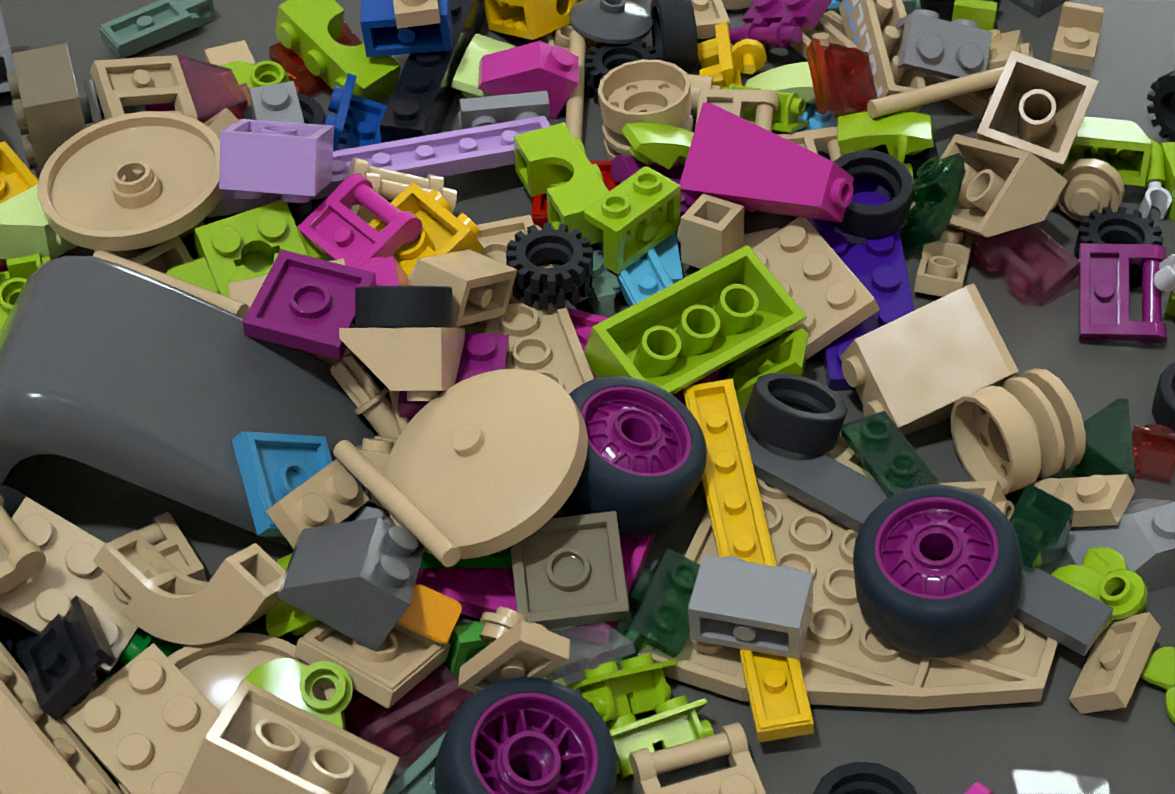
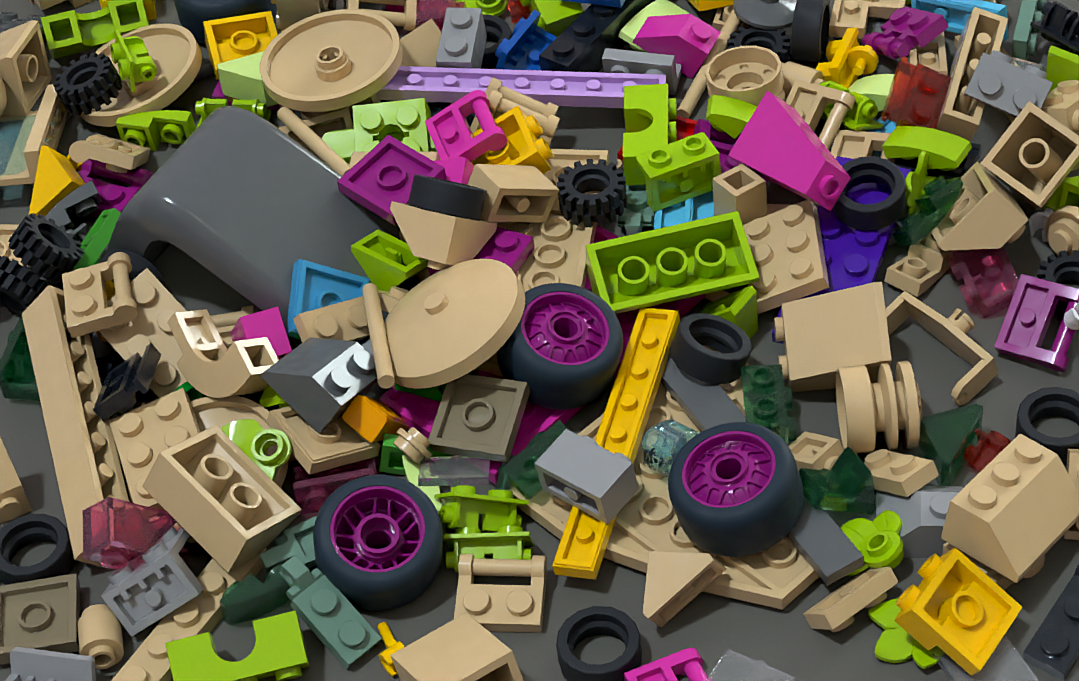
camera: 30 degrees right, 0 degrees up
(208, 546) = (263, 324): none -> dark pink slope
(276, 159) = (427, 66): lavender brick -> none
(340, 406) = (387, 260): none -> lime slope
(519, 652) = (400, 459): tan plate -> none
(820, 544) = (663, 443): none -> clear light blue head
(916, 702) = (676, 580): none -> tan slope
(934, 93) = (978, 123): tan bar -> none
(1041, 334) = (952, 334): none -> tan piece

